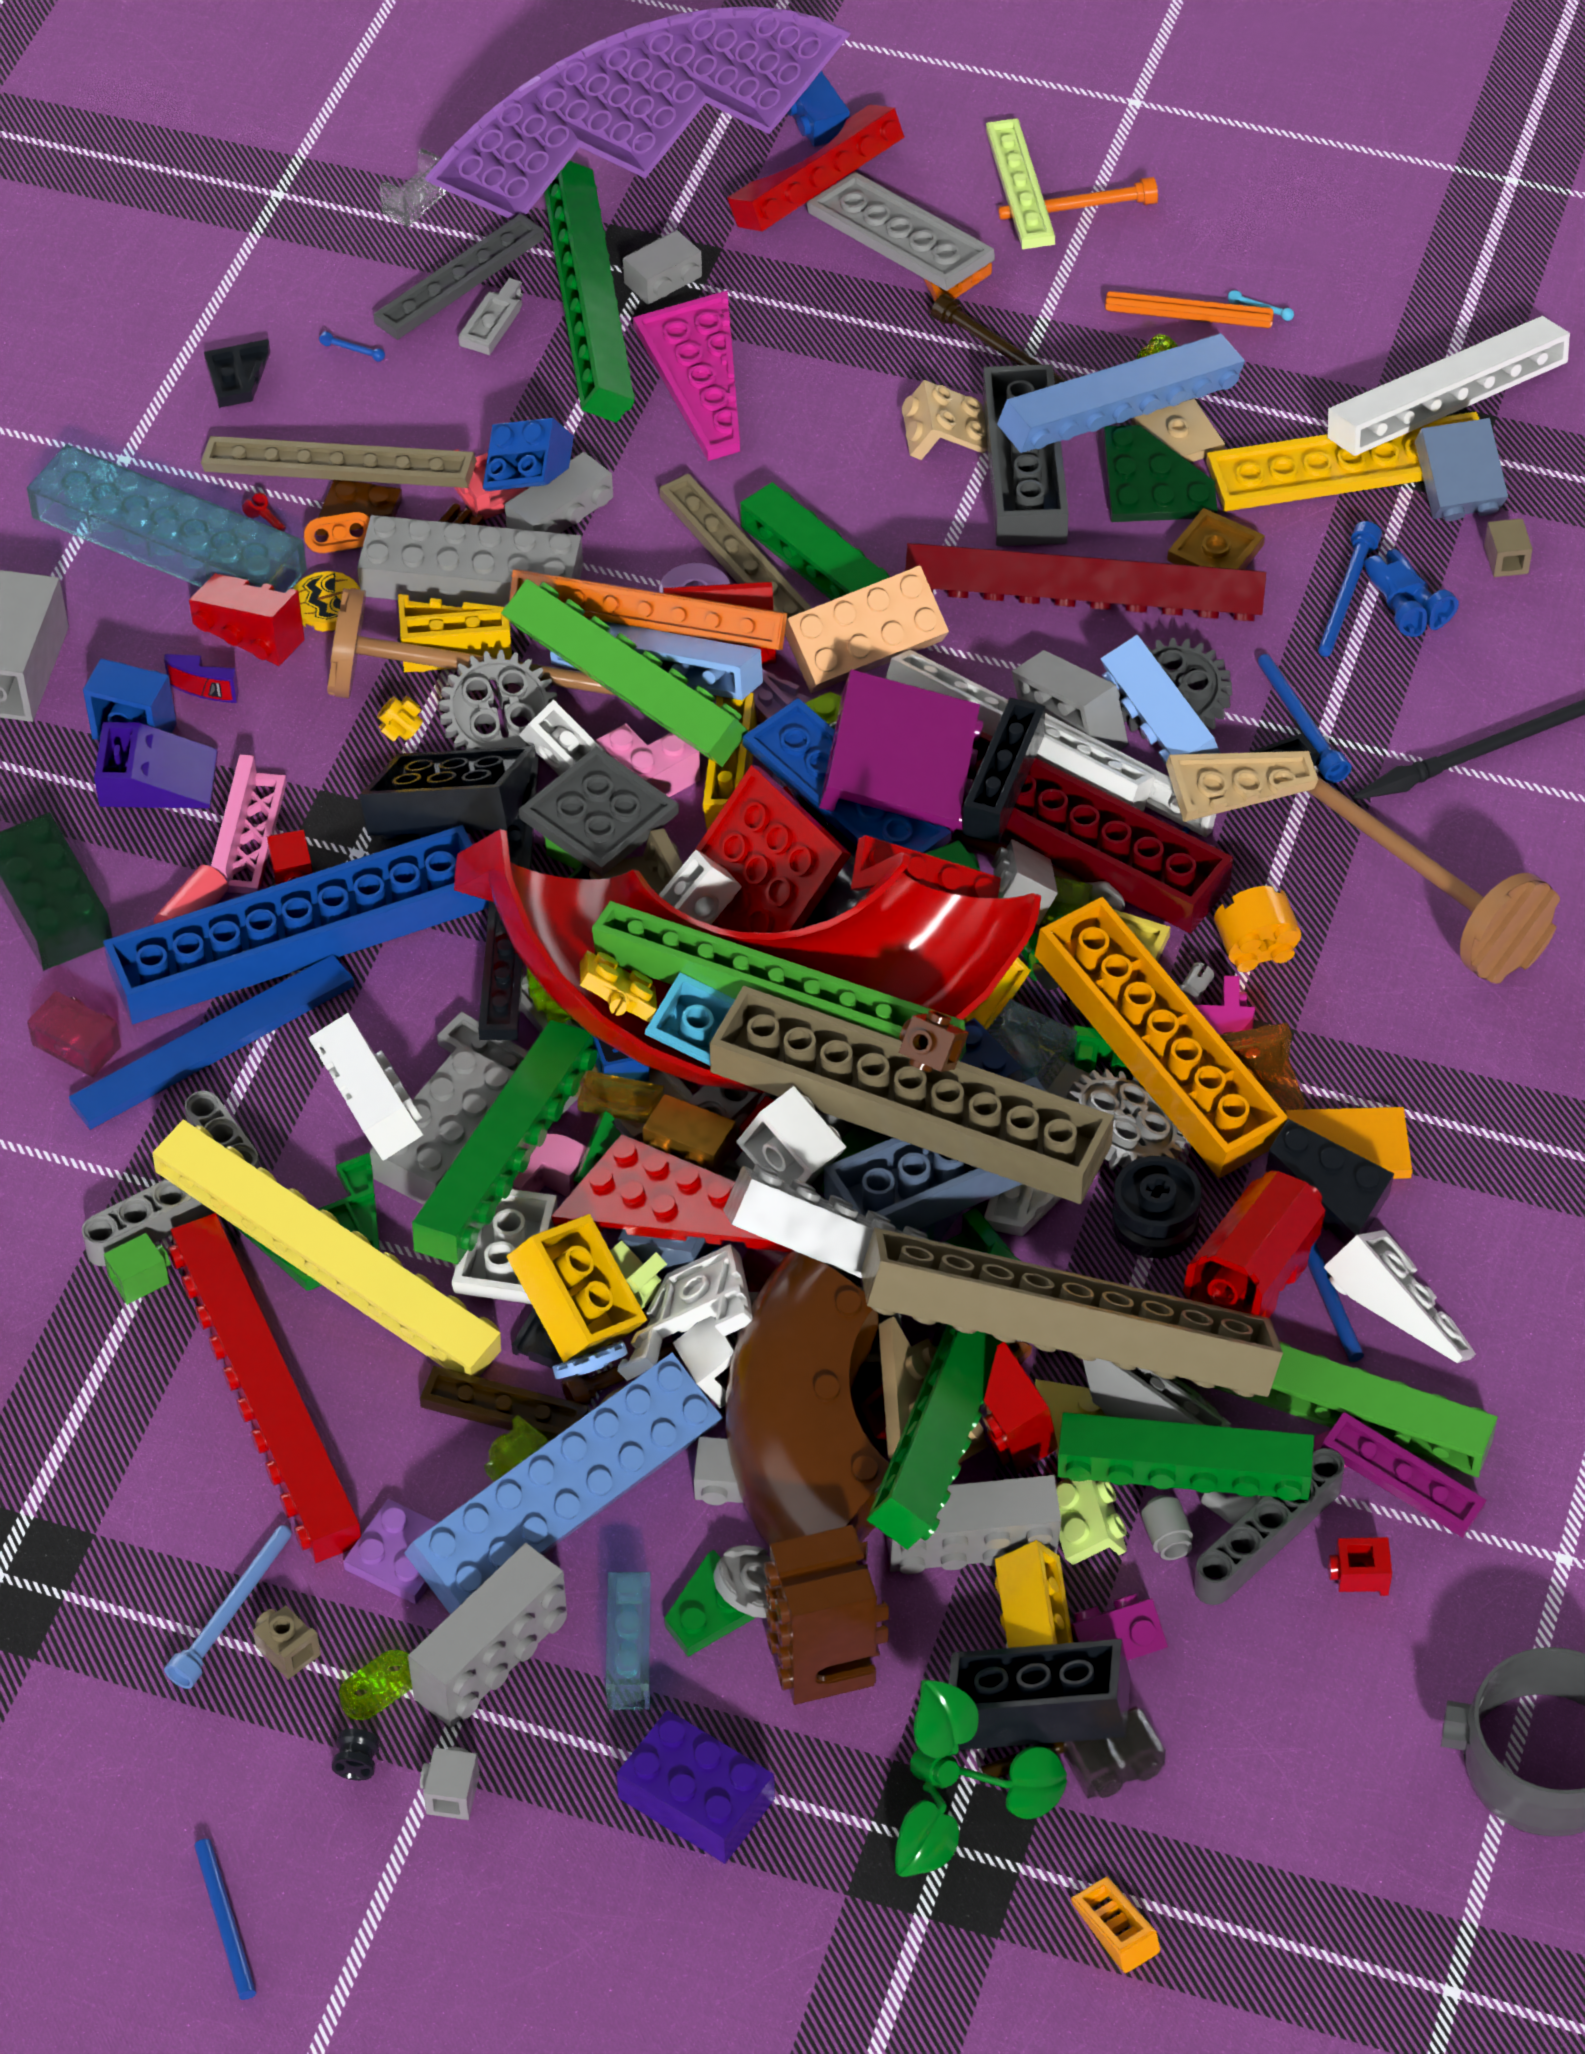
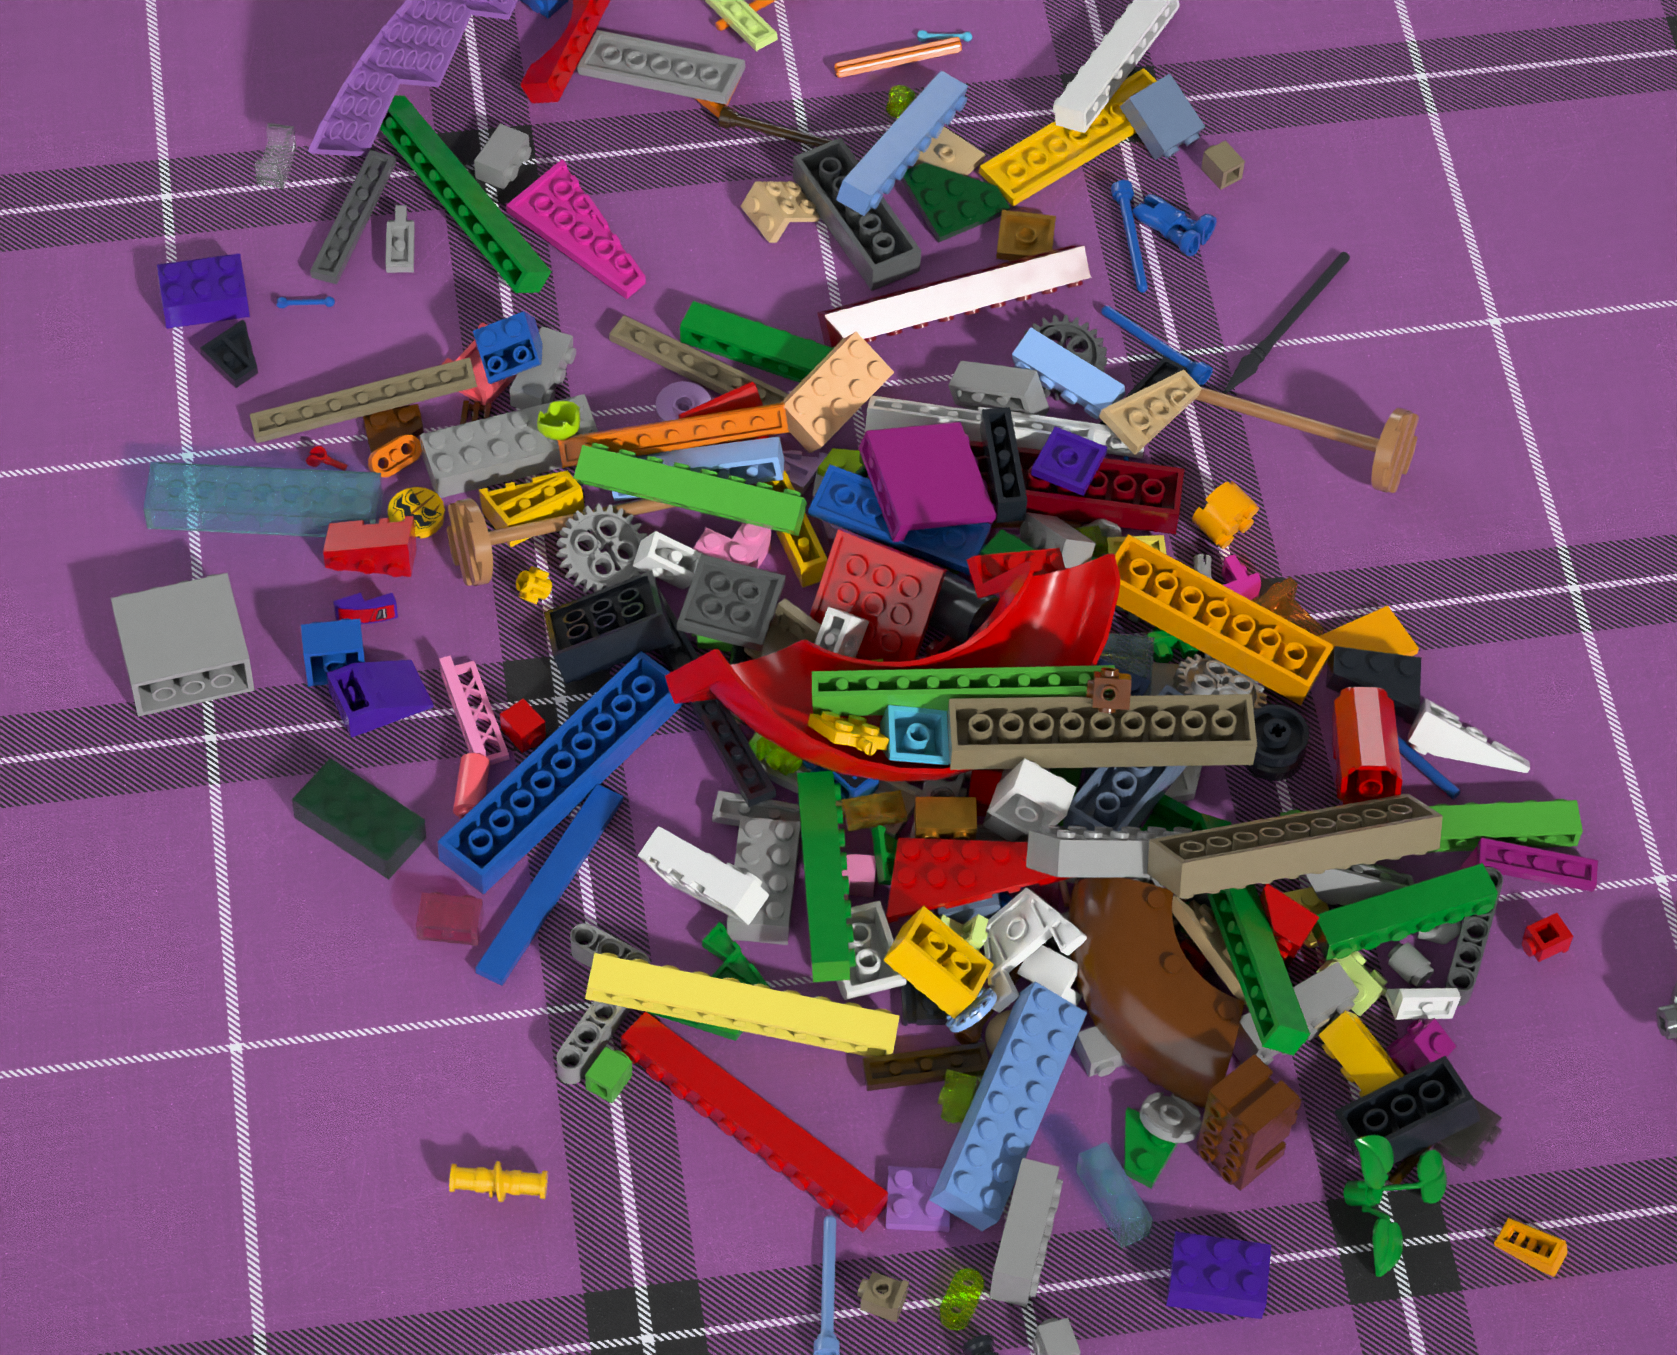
camera: 30 degrees left, 5 degrees up
(245, 296) = (203, 290): none -> dark purple brick
(526, 551) = (560, 420): none -> lime hair
(1091, 796) = (1069, 460): none -> dark purple plate
(1152, 1577) = (1423, 1003): none -> white panel

